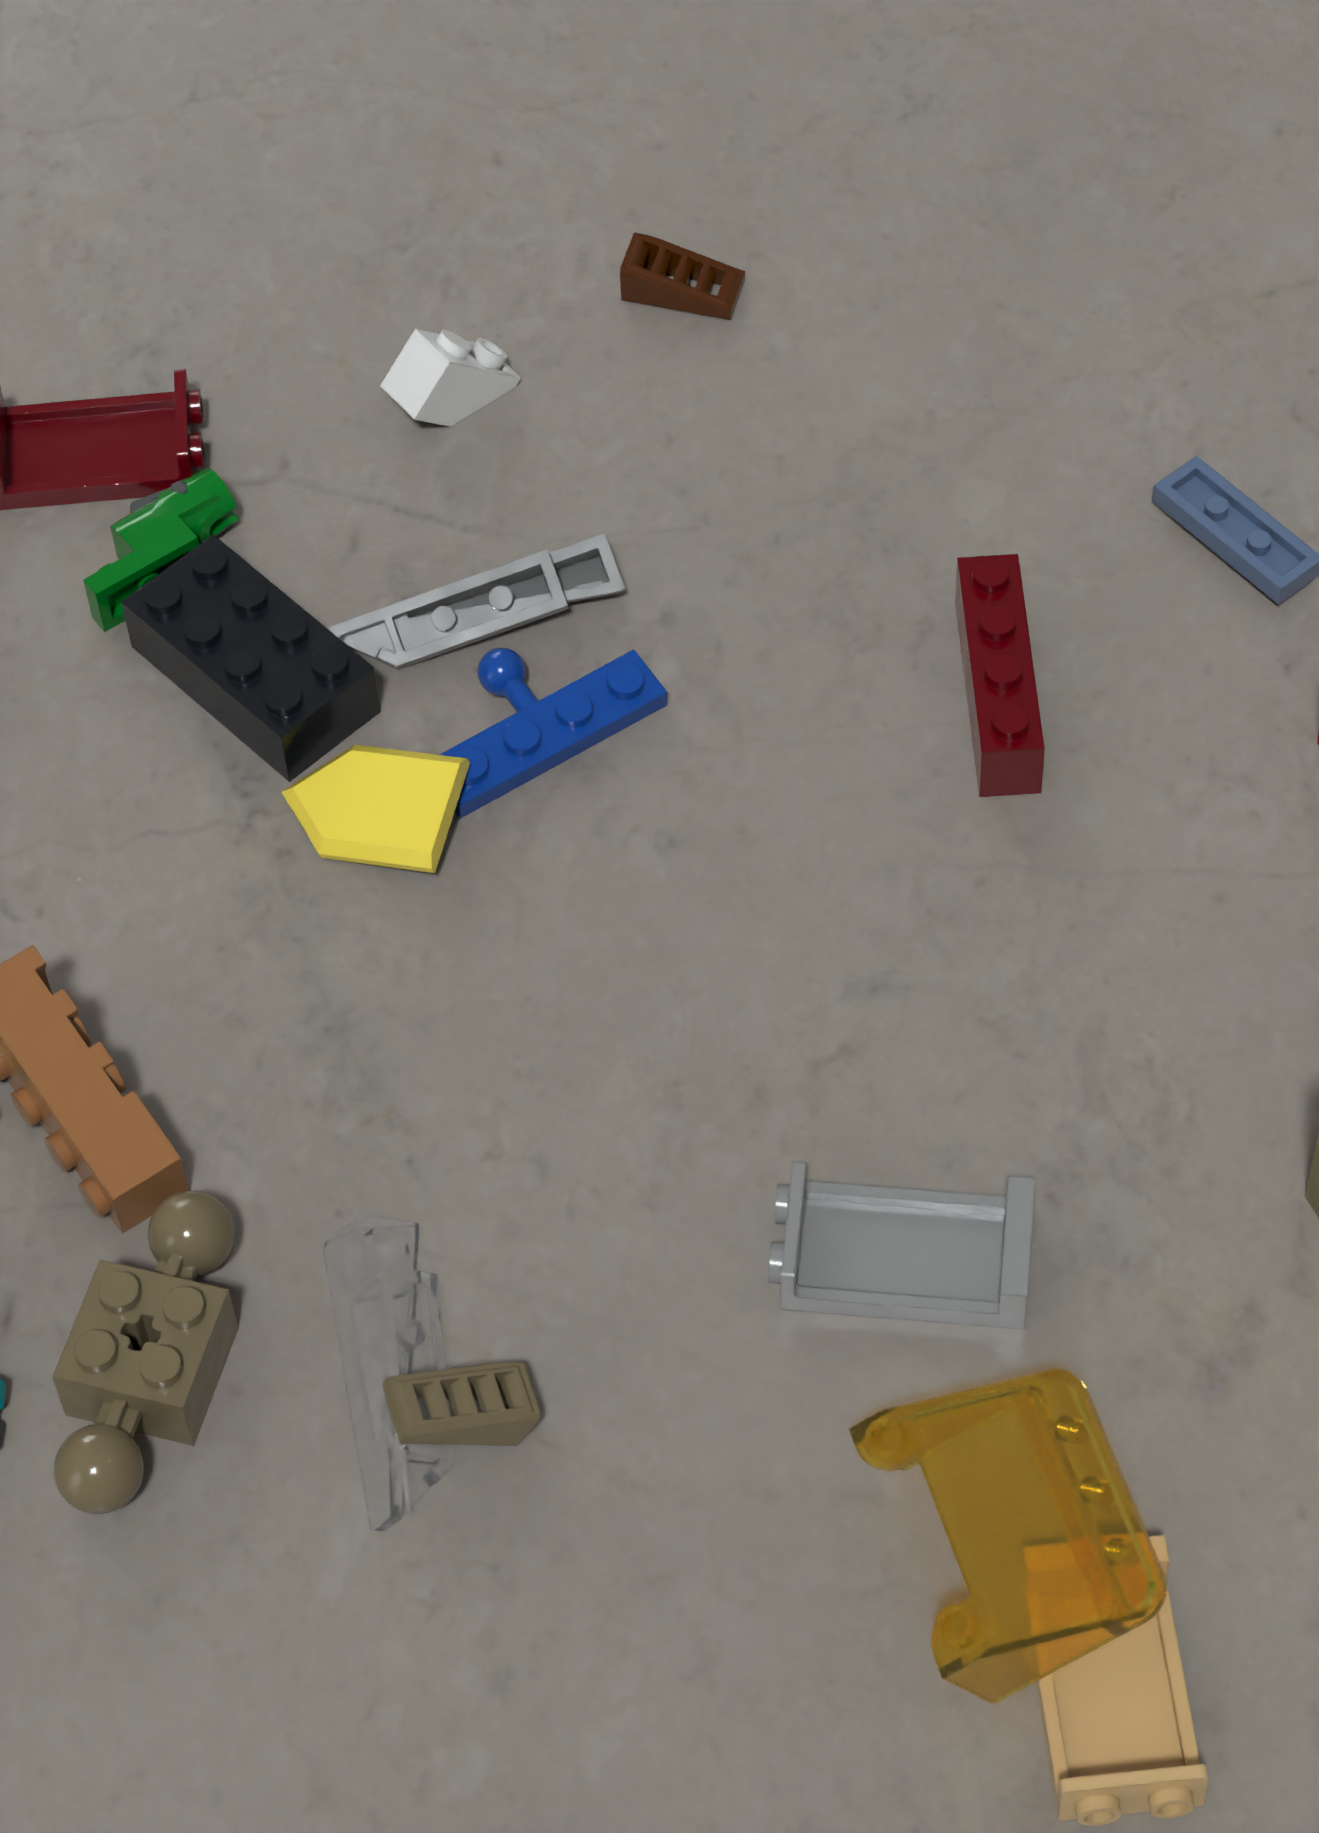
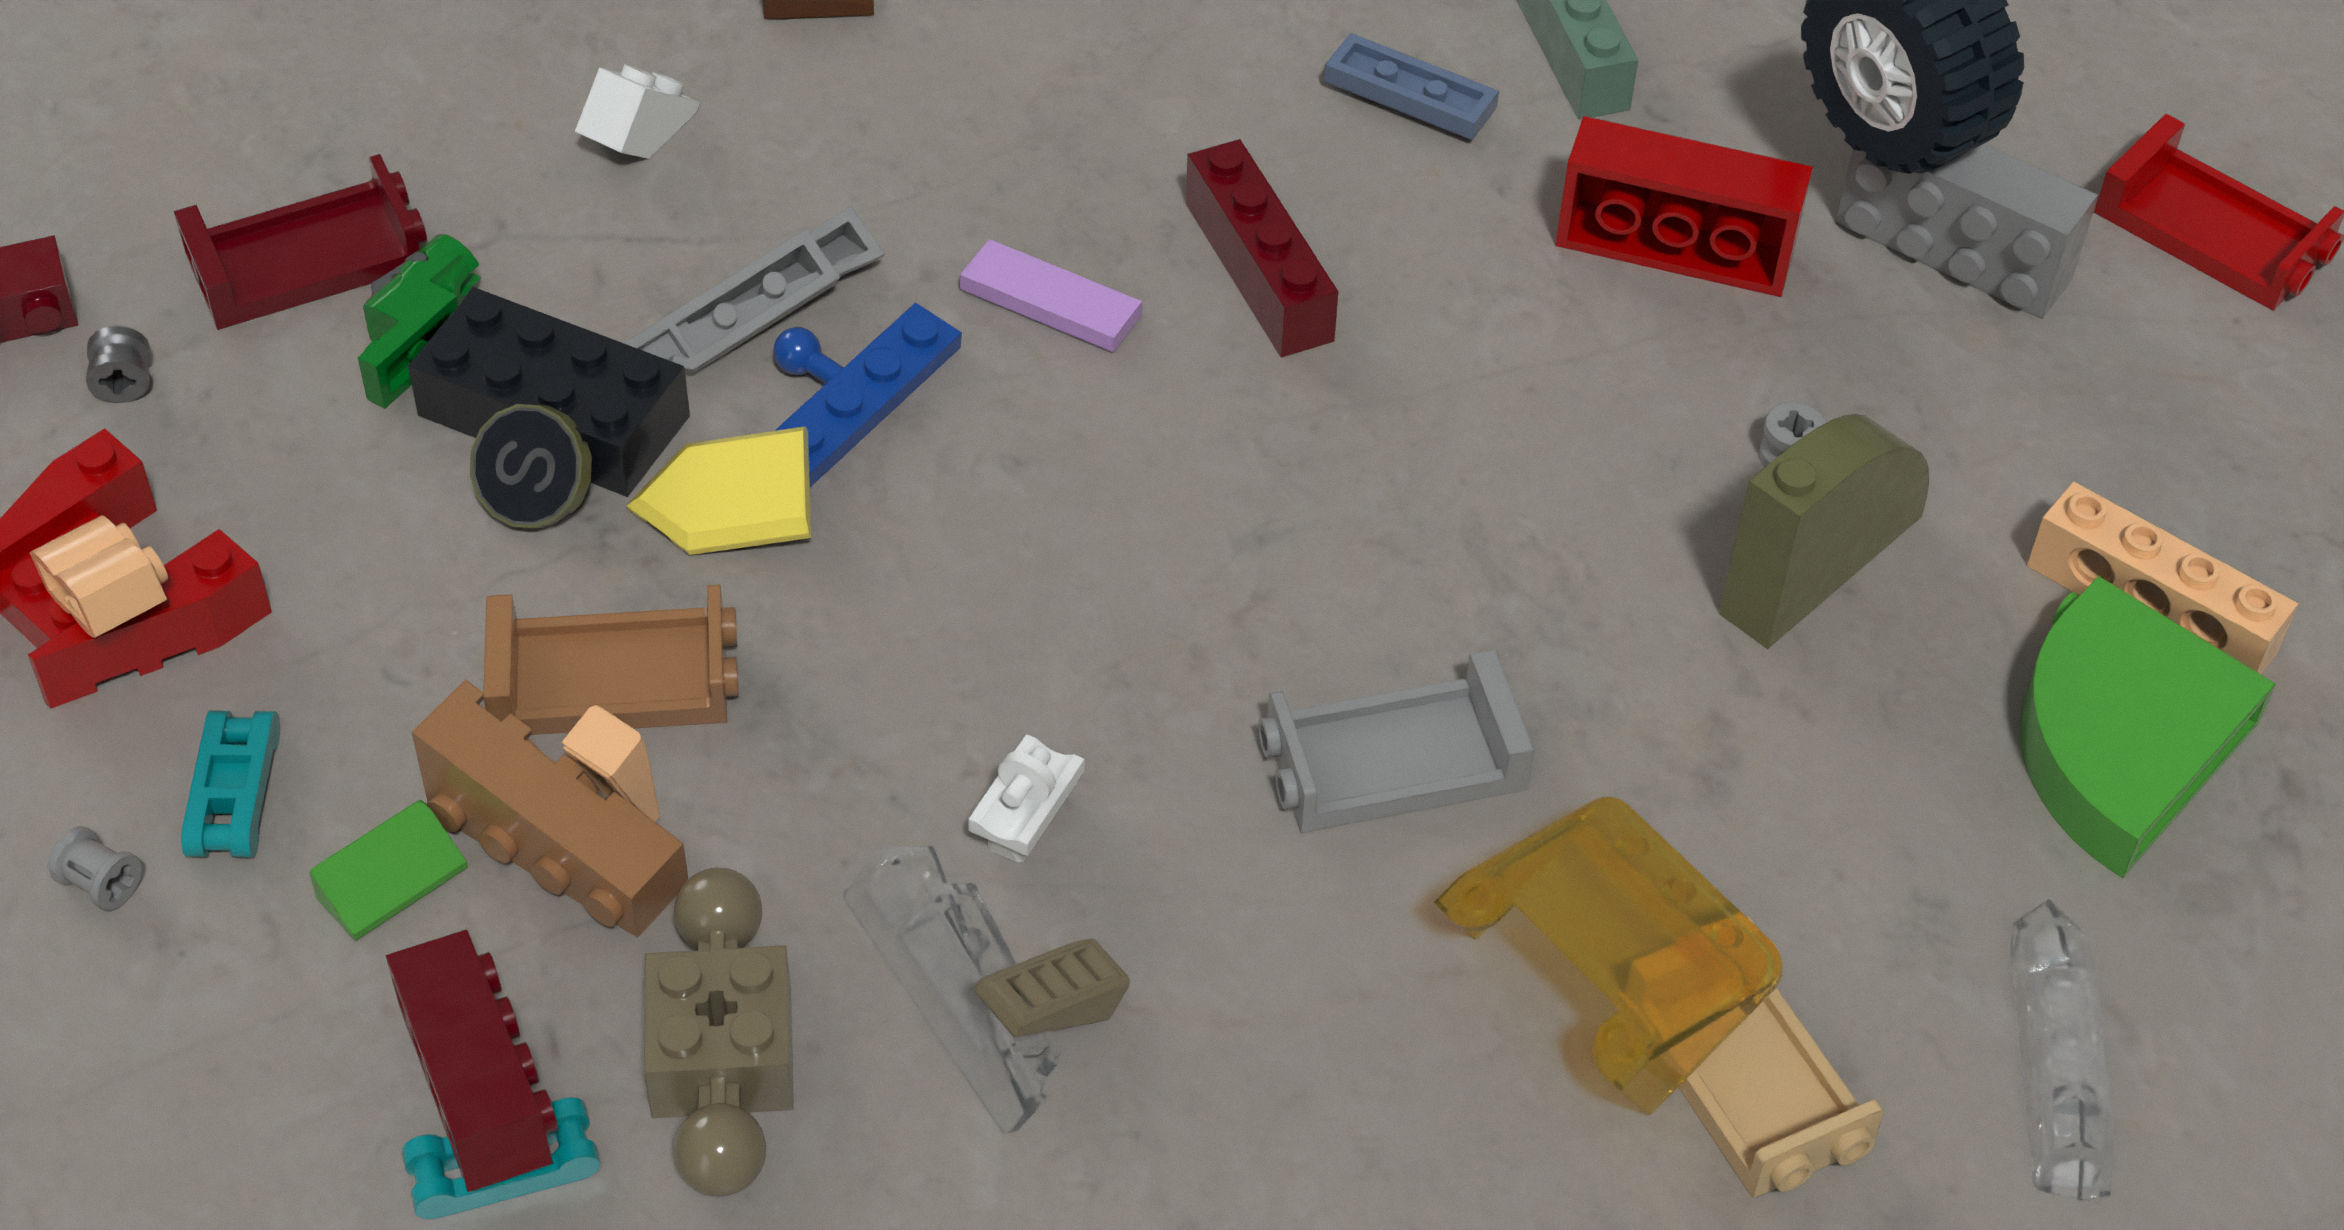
camera: 25 degrees left, 5 degrees down
(143, 1061) = (613, 758): none -> light nougat slope
(194, 955) = (635, 665): none -> medium nougat panel
(198, 732) = (530, 466): none -> black tile
(521, 1199) = (1025, 798): none -> white hips
(775, 672) = (1051, 295): none -> lavender tile

